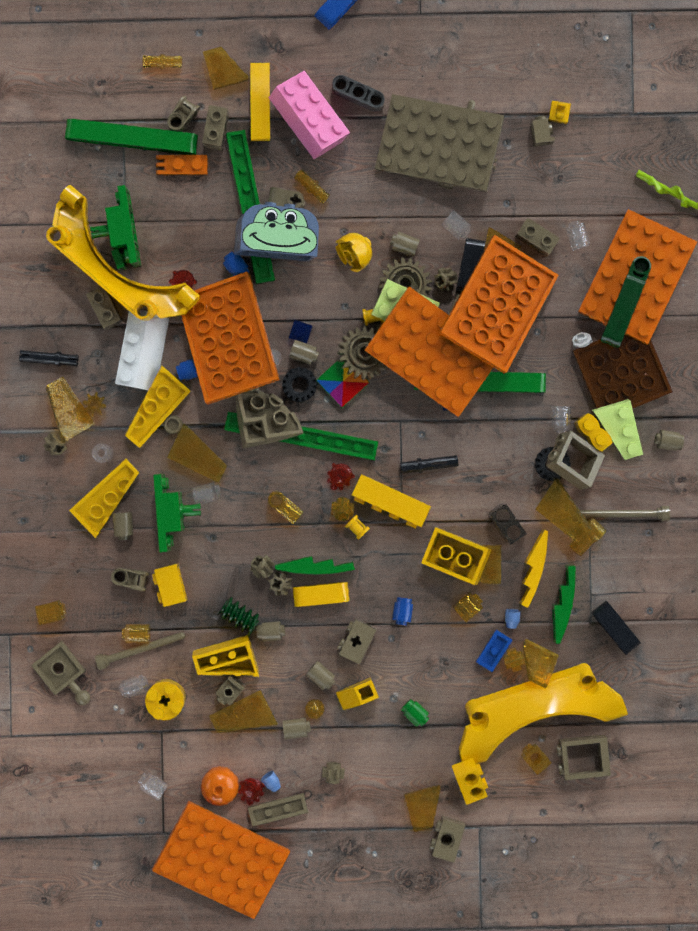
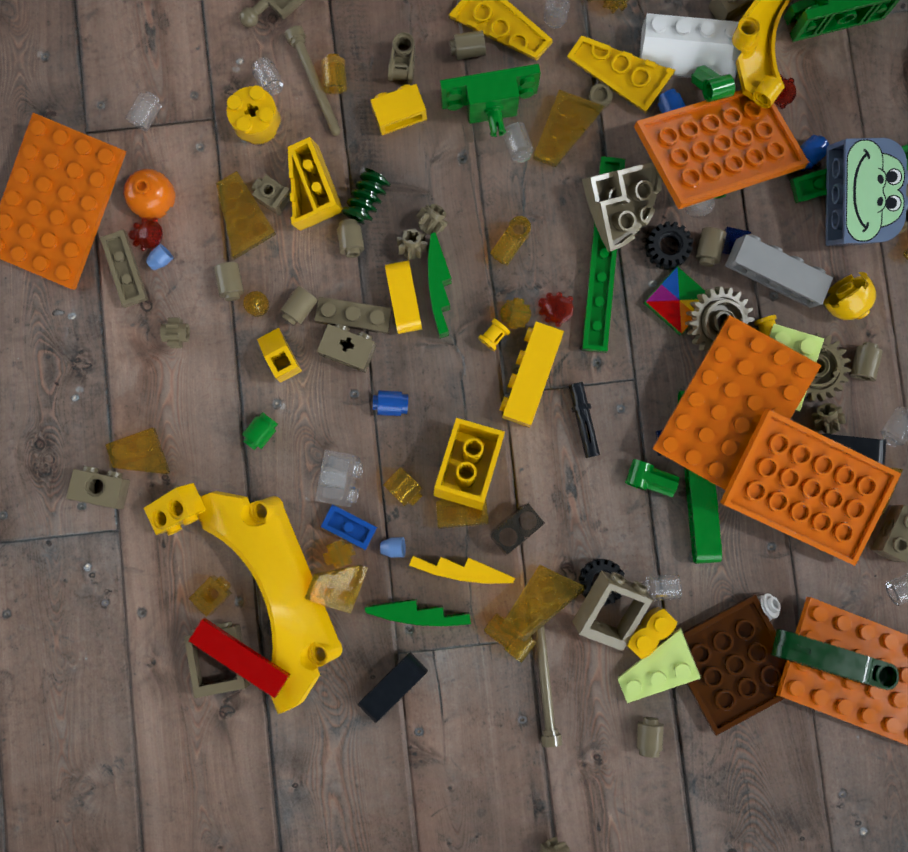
camera: 90 degrees right, 5 degrees down
(177, 338) = (712, 84): none -> green piece
(329, 304) = (779, 271): none -> light grey brick
(330, 633) = (353, 315): none -> dark tan plate
(459, 655) = (339, 479): none -> clear brick
(477, 421) = (645, 476): none -> green piece
(584, 739) = (239, 657): none -> red tile

